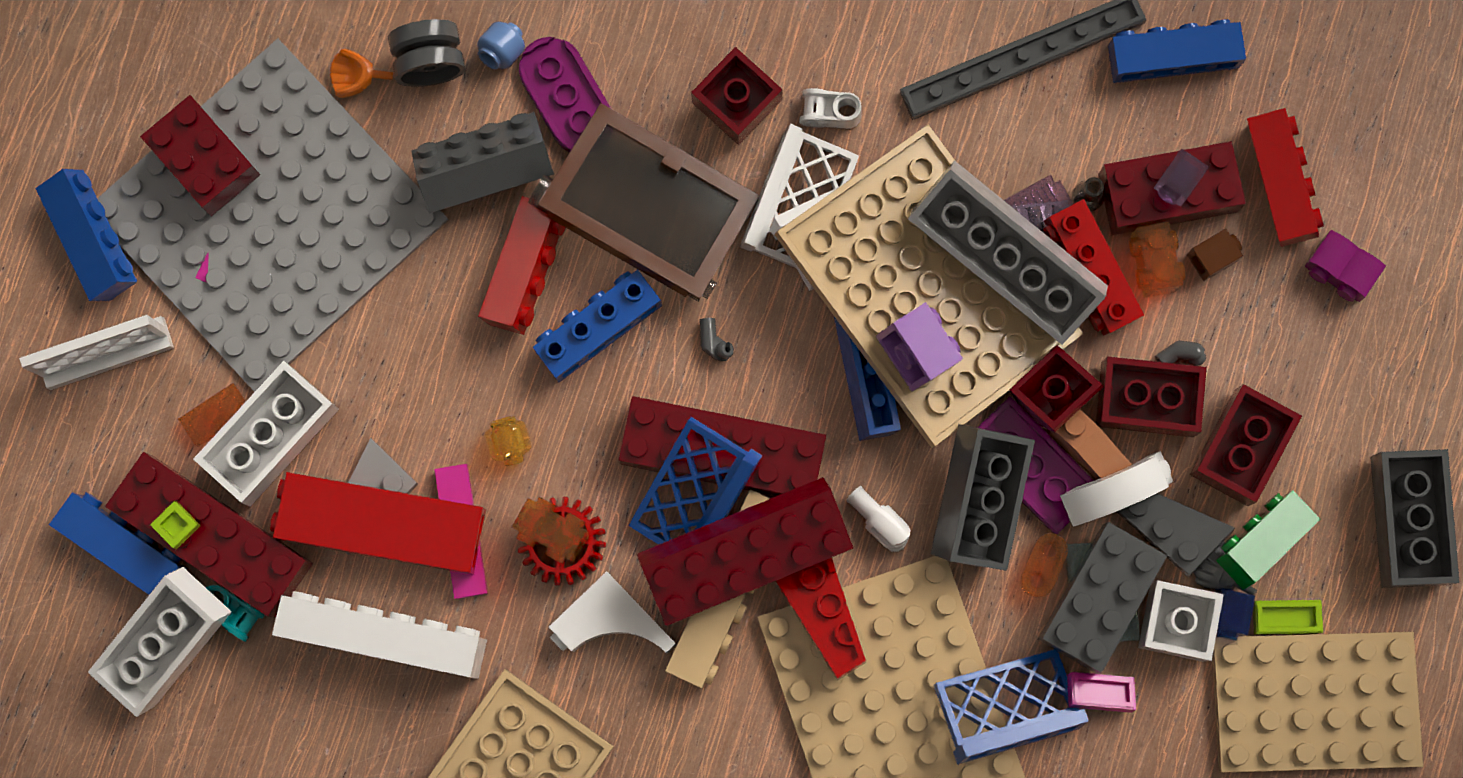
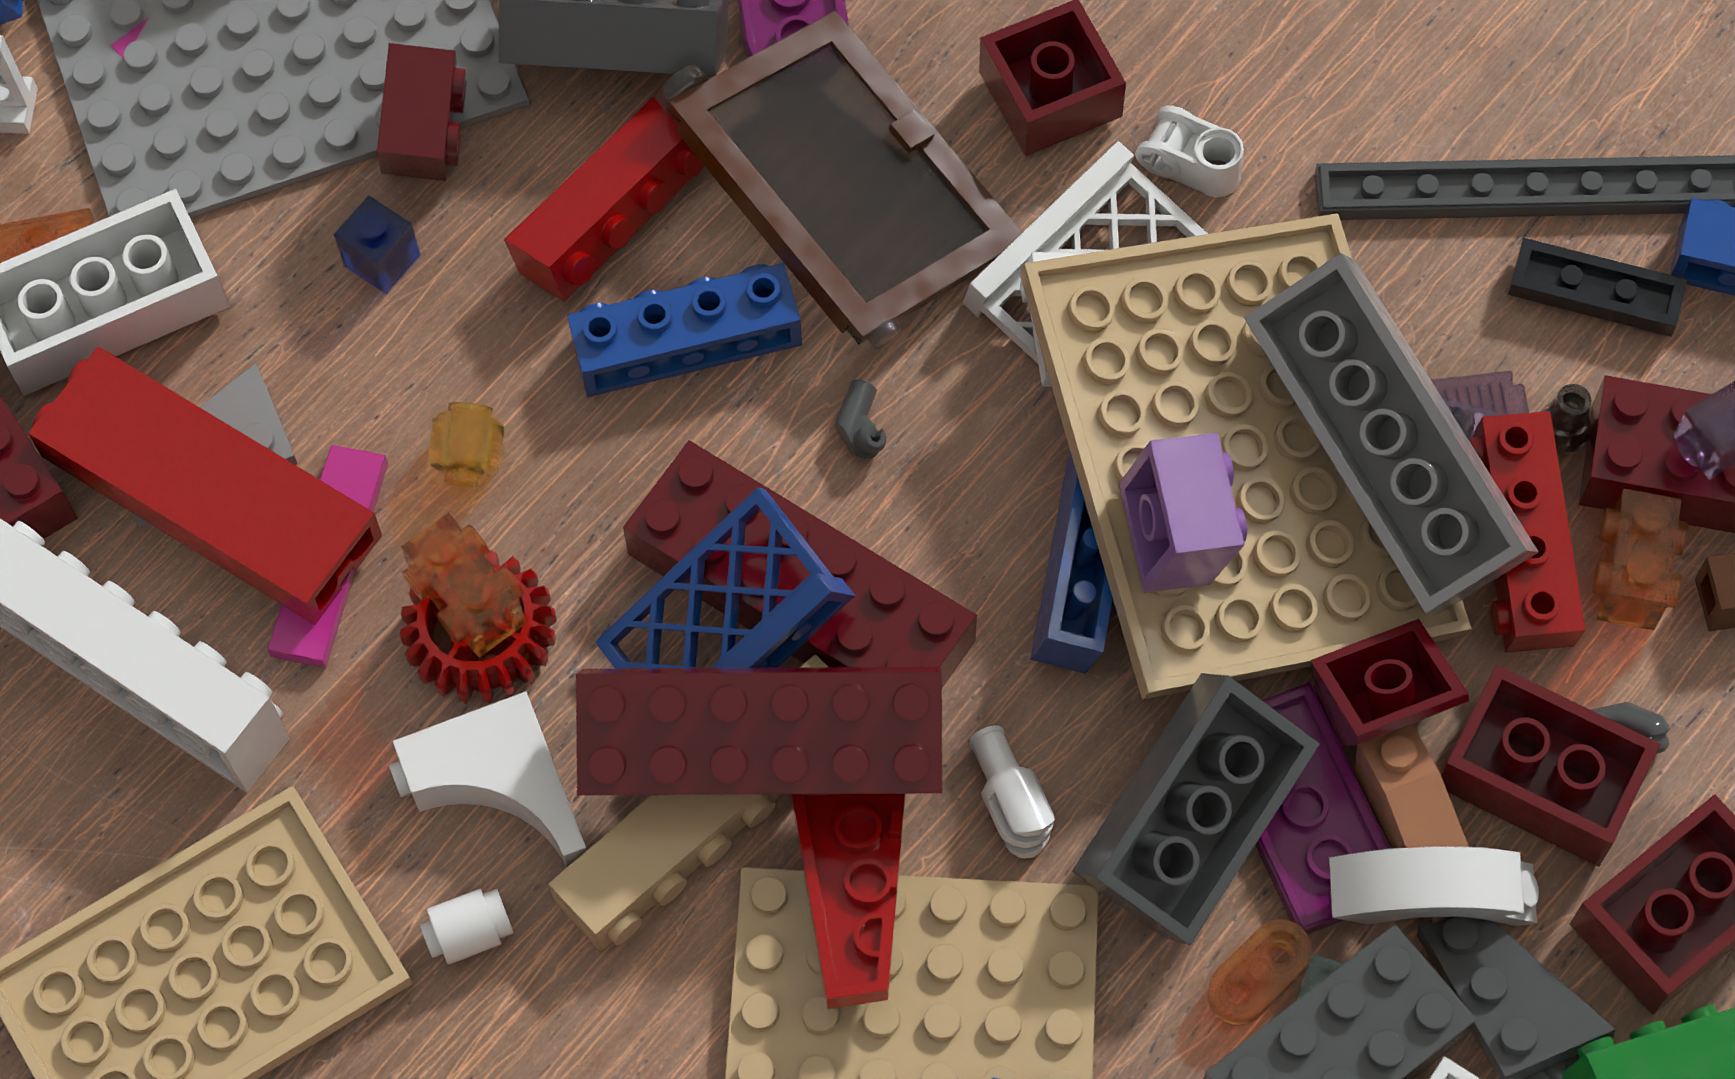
camera: 20 degrees right, 15 degrees down
(398, 260) = (418, 110): none -> dark red brick
(406, 343) = (377, 244): none -> clear blue brick
(629, 706) = (466, 925): none -> white brick
(1078, 105) = (1597, 287): none -> black plate

